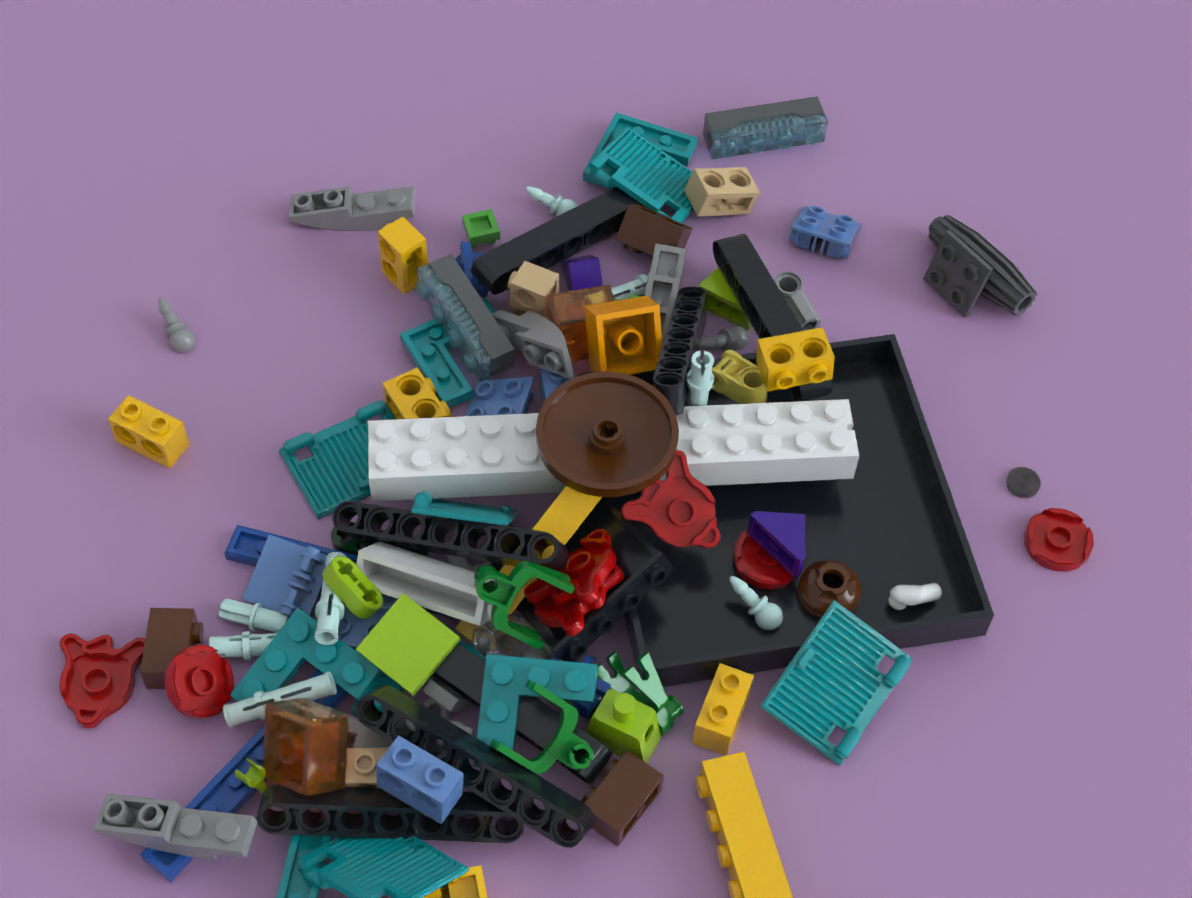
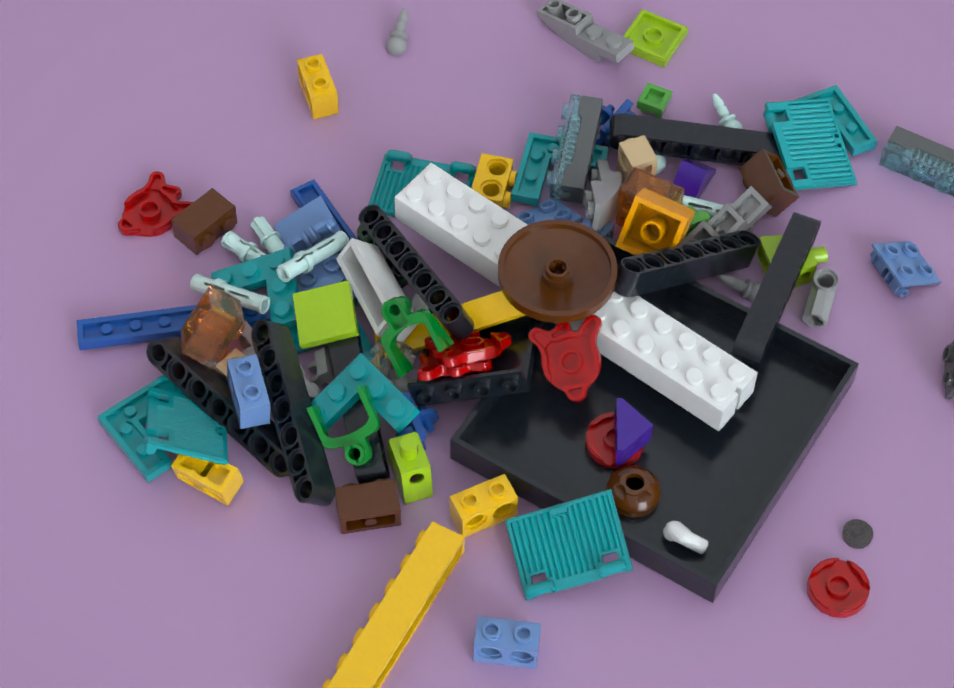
camera: 45 degrees right, 0 degrees up
(175, 829) = (102, 317): light grey slope -> none
(199, 681) = (198, 249): red tile -> none
(254, 777) = (173, 326): lime hand -> none
(352, 587) = (329, 258): lime beam -> none
(401, 253) = (580, 74): yellow brick -> none
(417, 168) = (655, 37): none -> lime tile
(463, 511) = (440, 262): teal window -> none
(650, 688) = (439, 444): piece -> none
(700, 379) = (658, 282): light aqua pin -> none
(721, 191) = (850, 187): tan brick -> none
(738, 379) = (705, 312): light yellow piece -> none
(767, 614) = (574, 473): light aqua bar -> none
(795, 359) = (744, 318): yellow brick -> none
(874, 816) = (506, 642): none -> medium blue brick

